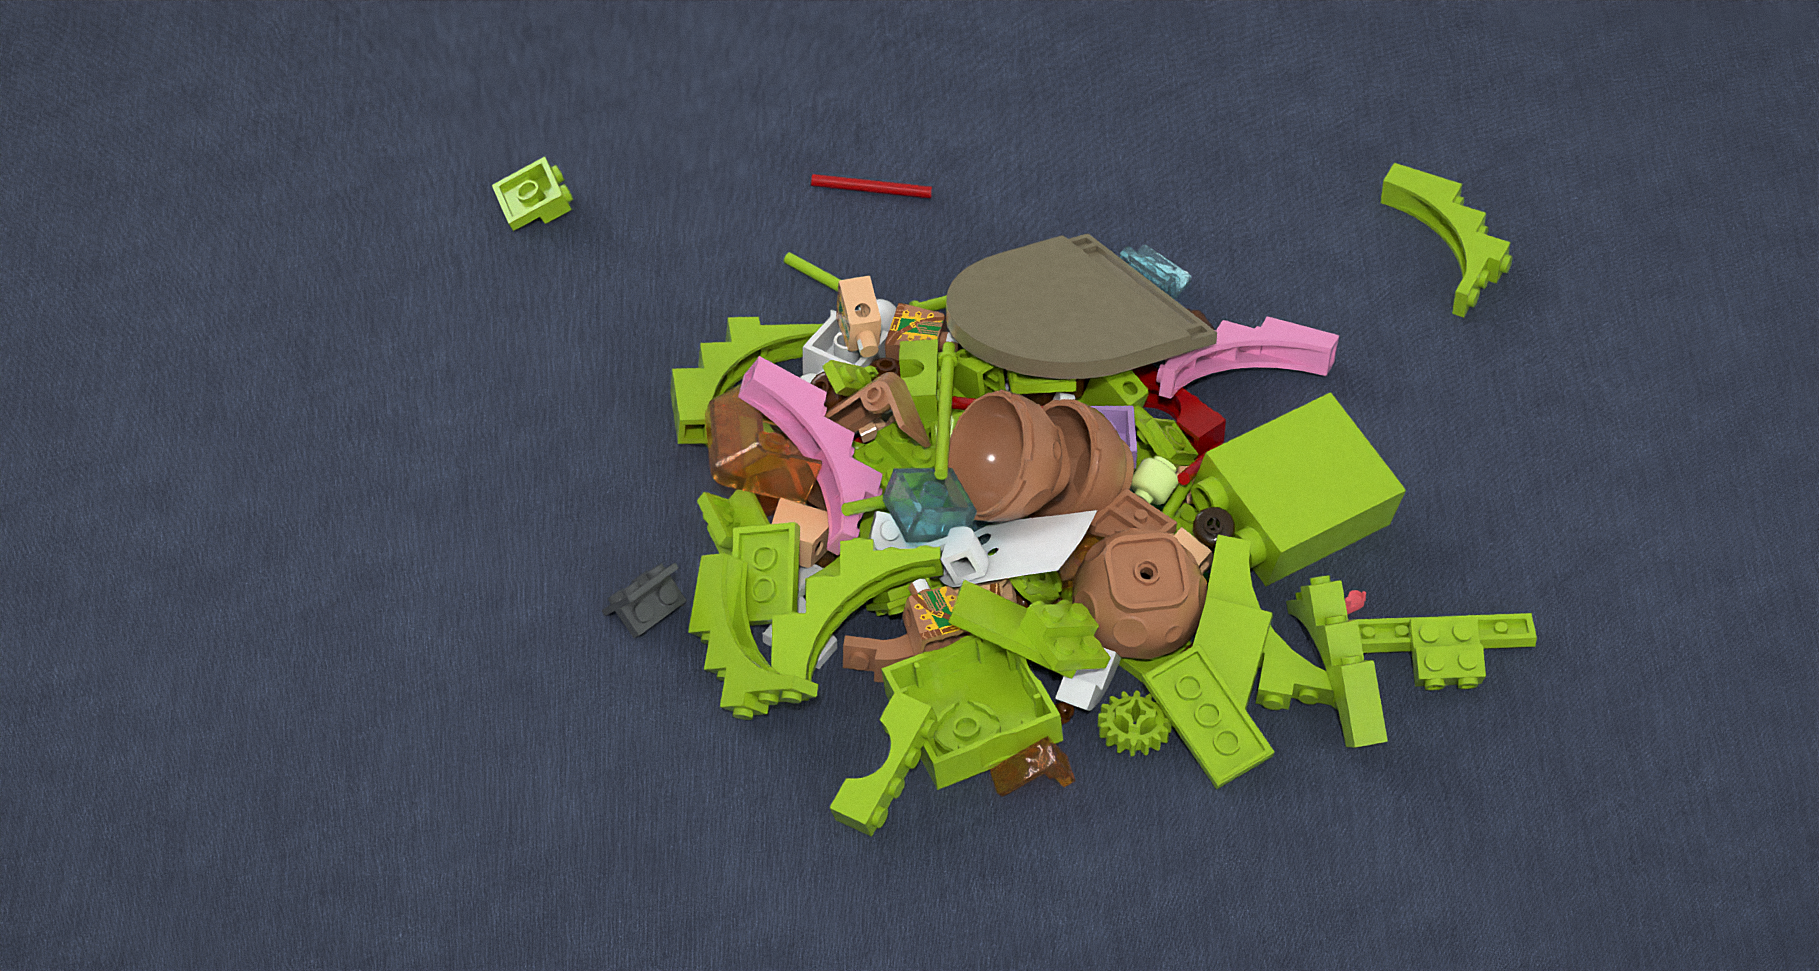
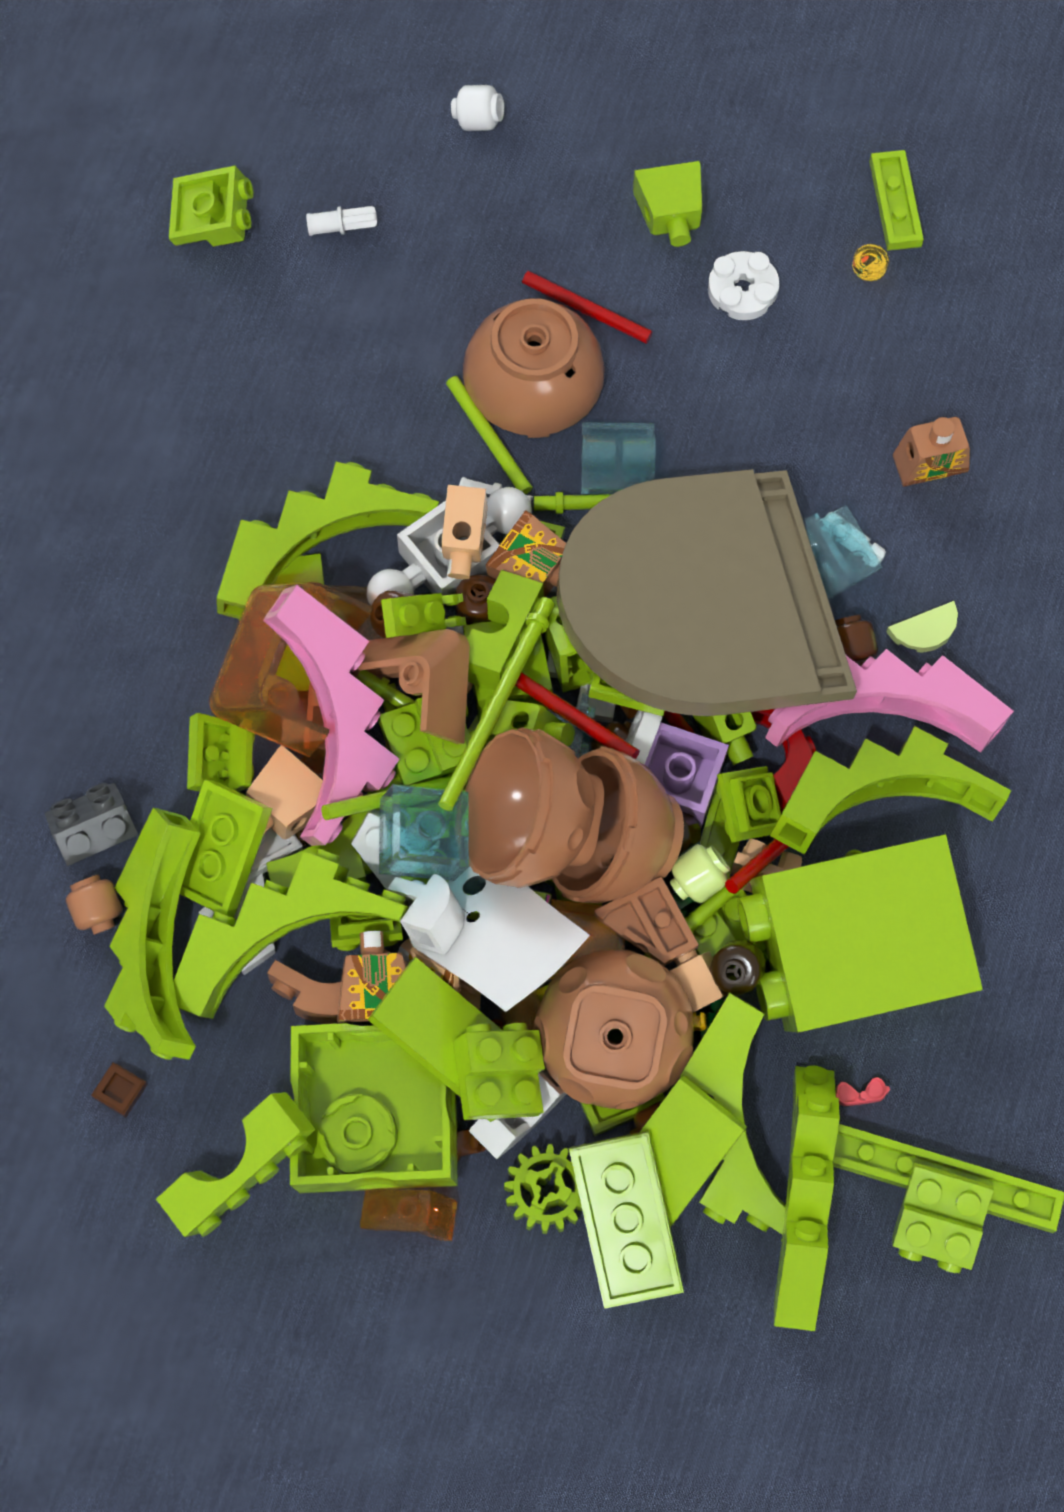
camera: 20 degrees right, 25 degrees up
(644, 179) = (341, 220): none -> white axle
(676, 649) = (94, 904): none -> nougat head
(718, 81) = (478, 107): none -> white head
(757, 763) = (119, 1089): none -> reddish brown tile
(851, 224) = (527, 385): none -> nougat piece
(903, 101) = (670, 199): none -> lime torso
(941, 264) = (616, 456): none -> clear light blue plate
(975, 144) = (748, 267): none -> white plate
(1081, 60) = (896, 200): none -> lime plate
(1081, 104) = (870, 262): none -> clear yellow tile
(1193, 198) = (937, 449): none -> nougat torso
(1246, 312) = (926, 630): none -> yellowish green tile
(1253, 397) = (877, 773): none -> lime arch

